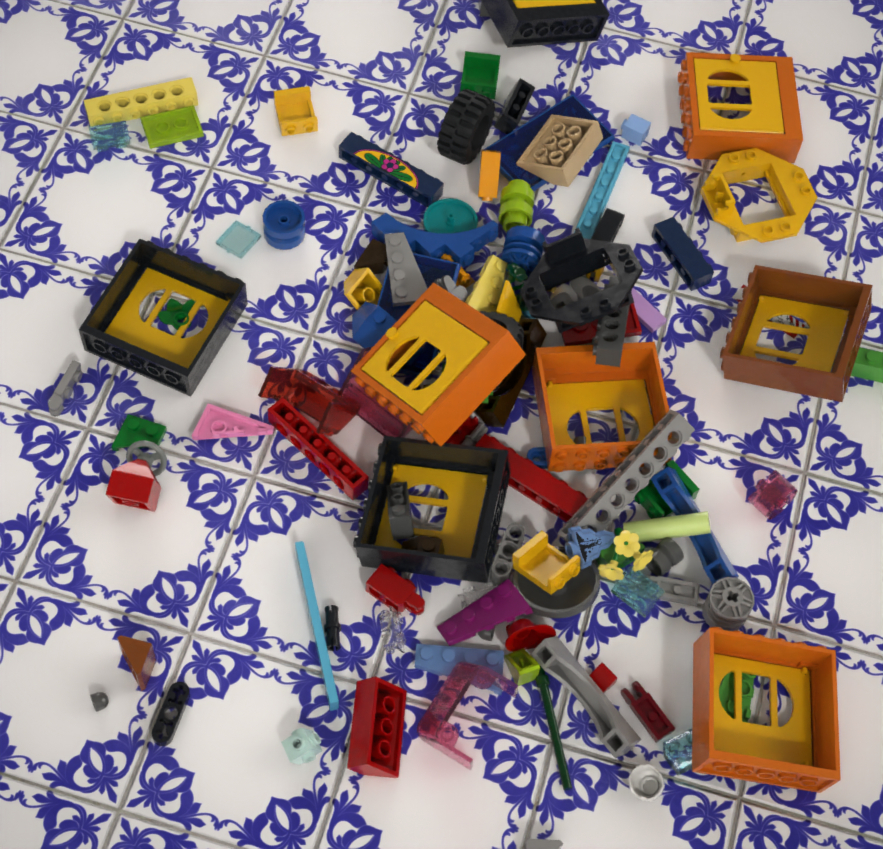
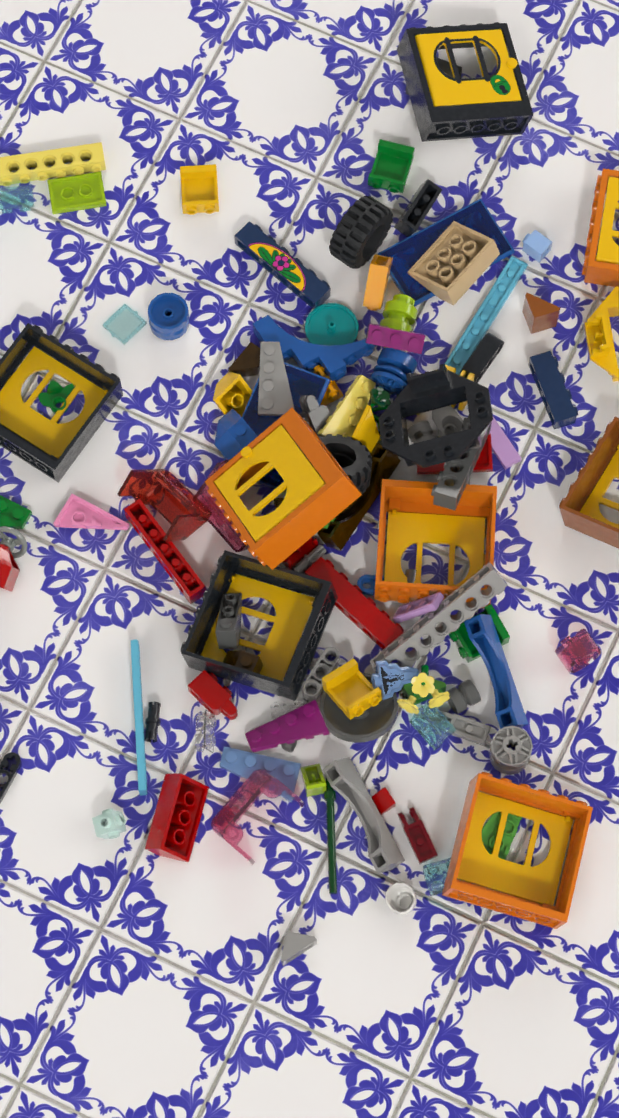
camera: 15 degrees right, 10 degrees up
(518, 215) = (395, 338): none -> magenta arch
(526, 634) = (322, 751): red piece -> none
(599, 470) = (418, 607): none -> lavender tile
(654, 185) = (539, 313): none -> dark orange slope
(670, 526) = (470, 669): yellowish green brick -> none

